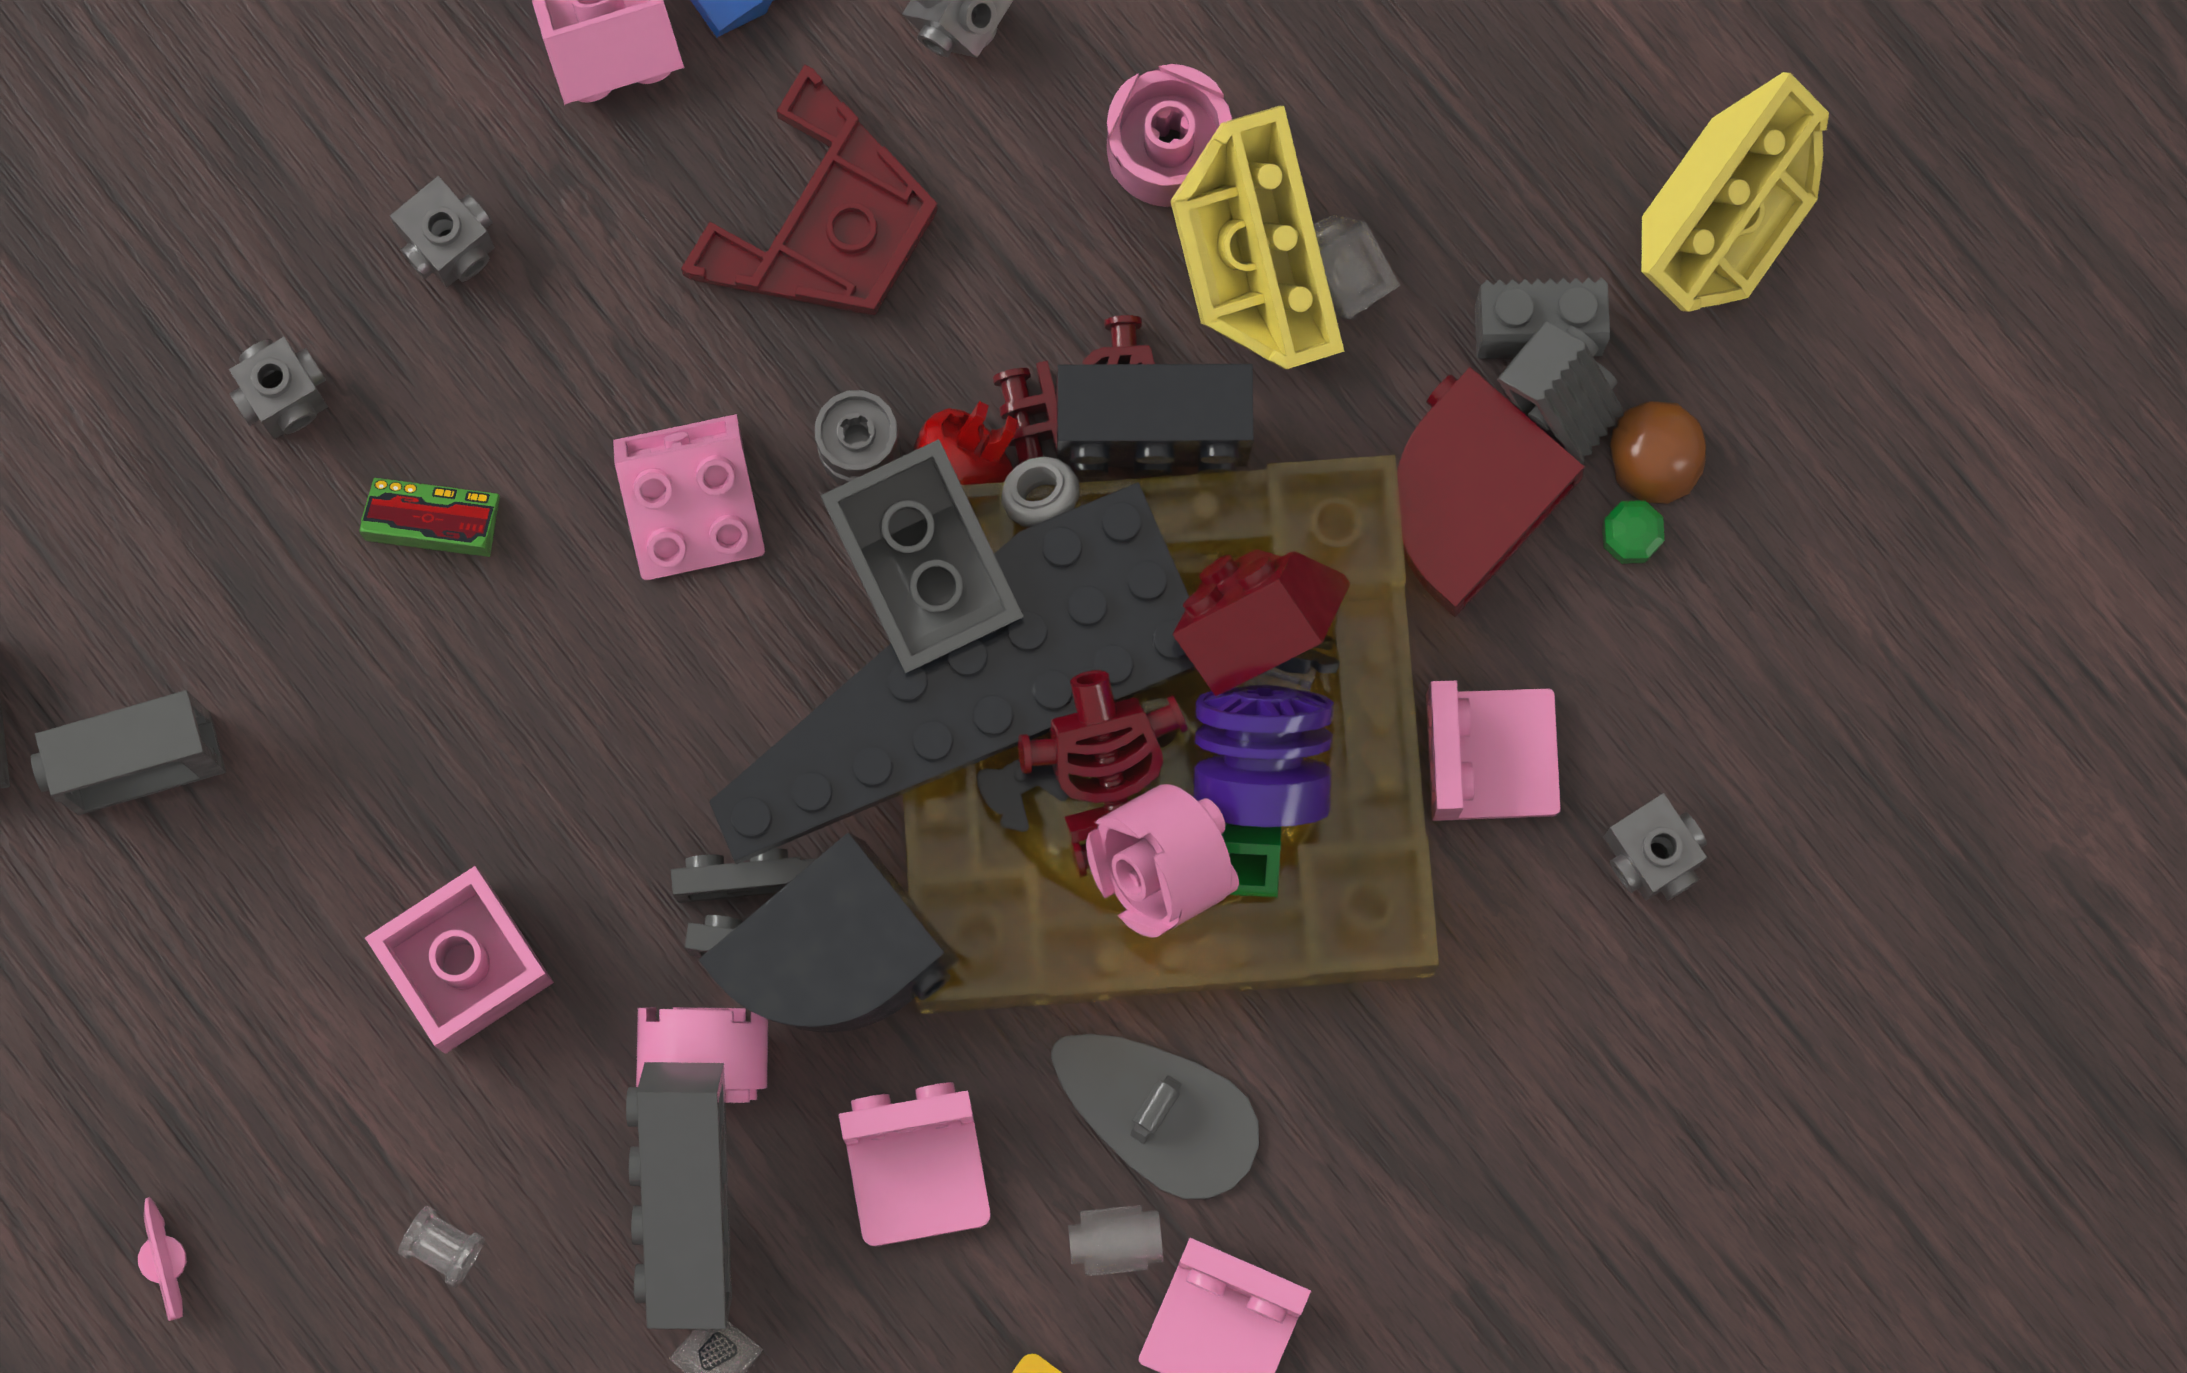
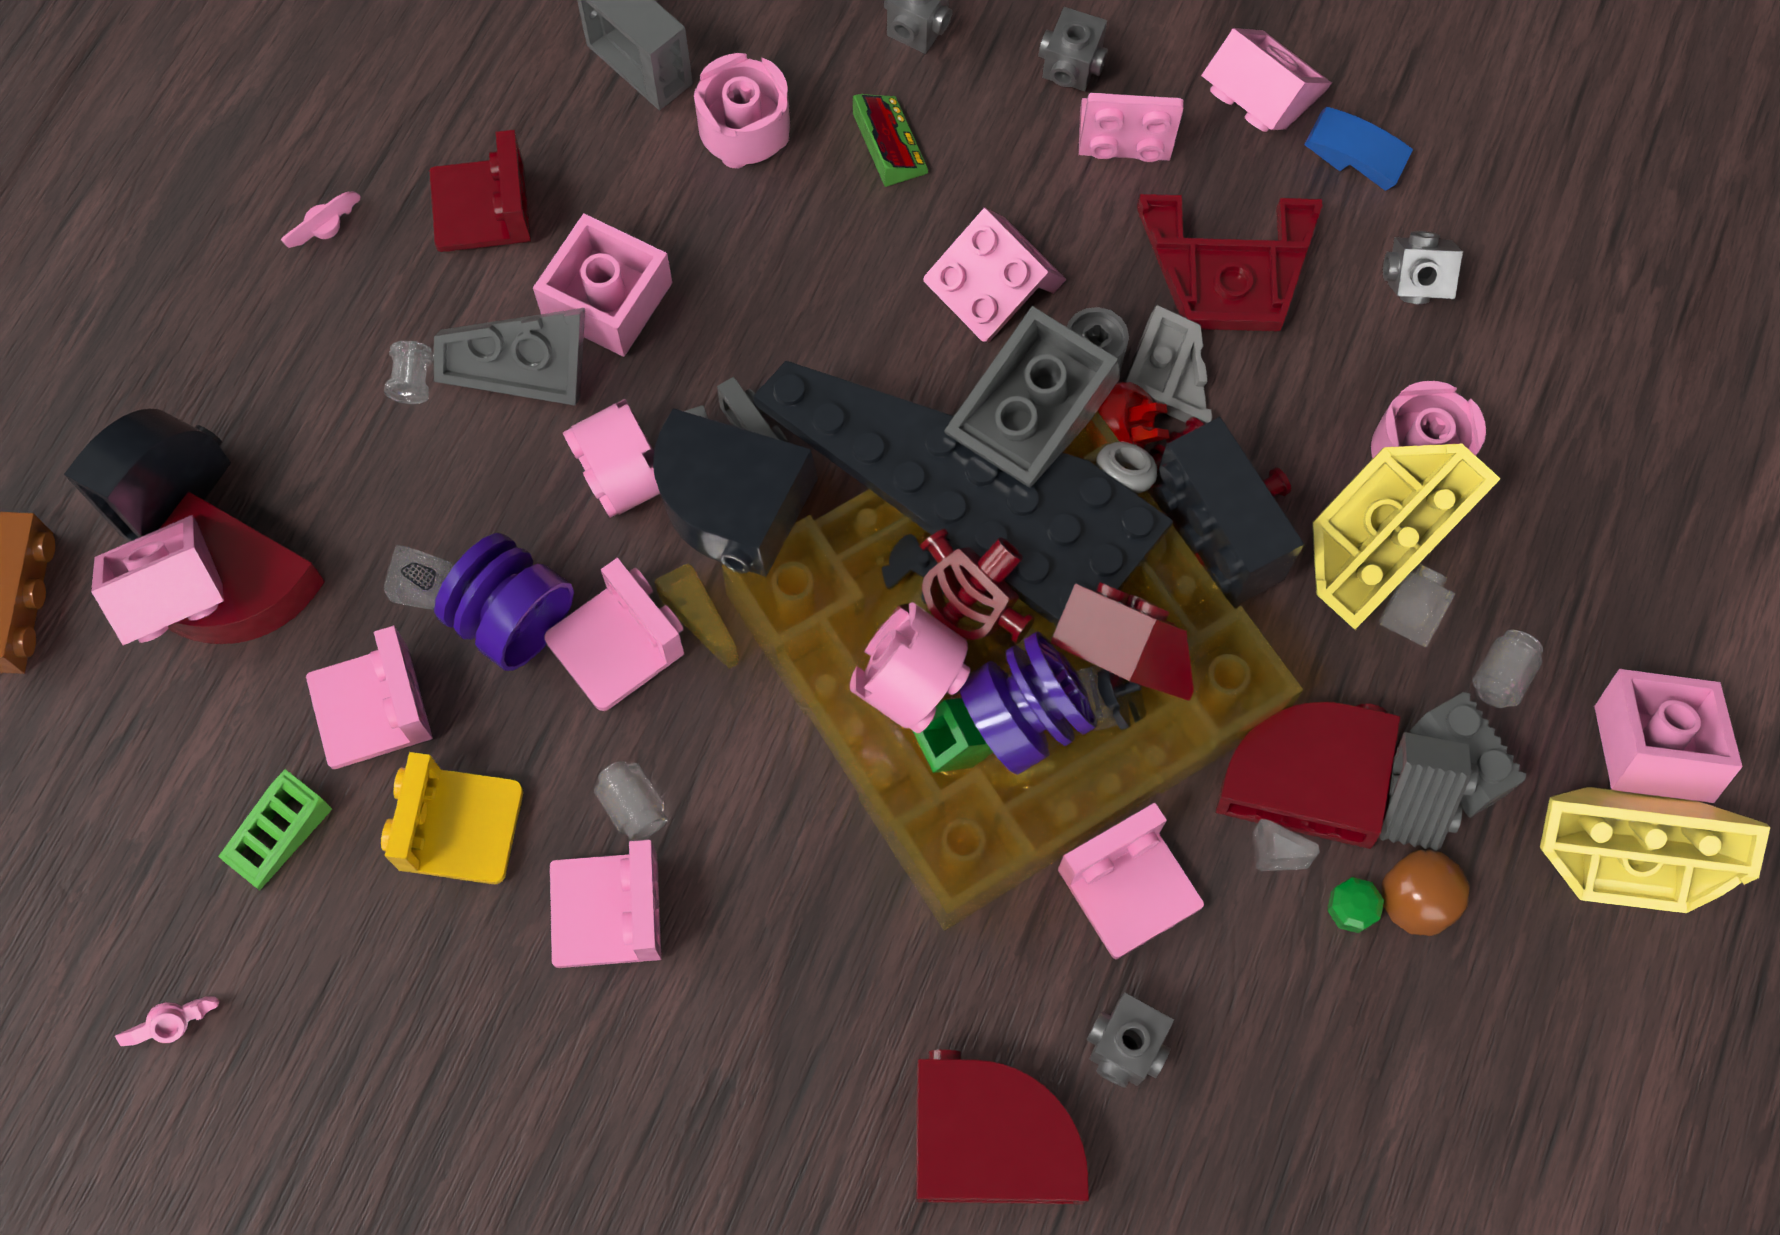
camera: 60 degrees right, 10 degrees down
(247, 1052) = (481, 200): none -> dark red bracket
(279, 649) = (742, 109): none -> bright pink brick
(496, 1110) = (516, 356): none -> dark grey wing
(577, 228) = (1129, 126): none -> bright pink bracket
(682, 1195) = (509, 481): dark grey brick -> none
(813, 1268) = (503, 601): none -> dark purple wheel
(918, 362) = (1171, 365): none -> light grey wing
(922, 1058) = (691, 604): none -> clear yellow slope
(1160, 1113) = (741, 790): dark grey shield -> none
(1472, 215) = (1508, 669): none -> clear brick
(1535, 576) = (1281, 848): none -> clear slope
(1636, 104) = (1667, 736): none -> bright pink brick
(1676, 1044) = (993, 1136): none -> dark red brick

